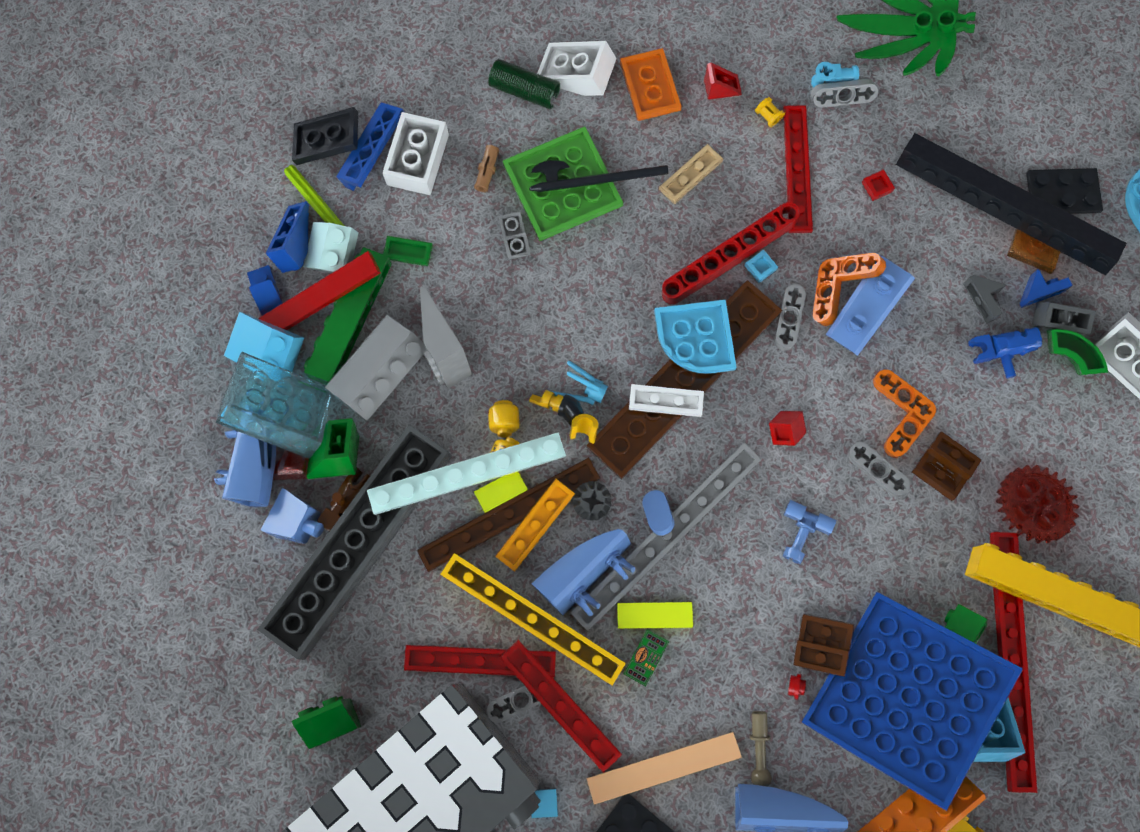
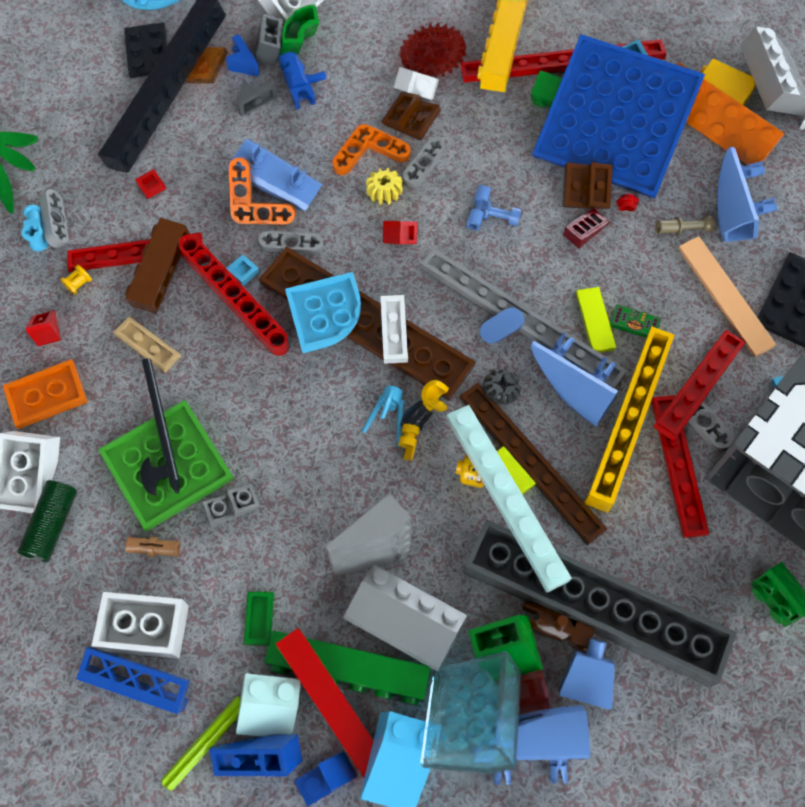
camera: 100 degrees left, 10 degrees down
(325, 136) = (123, 741): black plate -> none
(503, 418) = (436, 479): yellow head -> none
(535, 524) = (537, 433): light orange tile -> none
(753, 620) = (578, 239): none -> dark red slope
(772, 184) = (157, 266): none -> reddish brown brick
(856, 417) = (384, 186): none -> light yellow gear
(990, 476) = (416, 83): none -> white slope

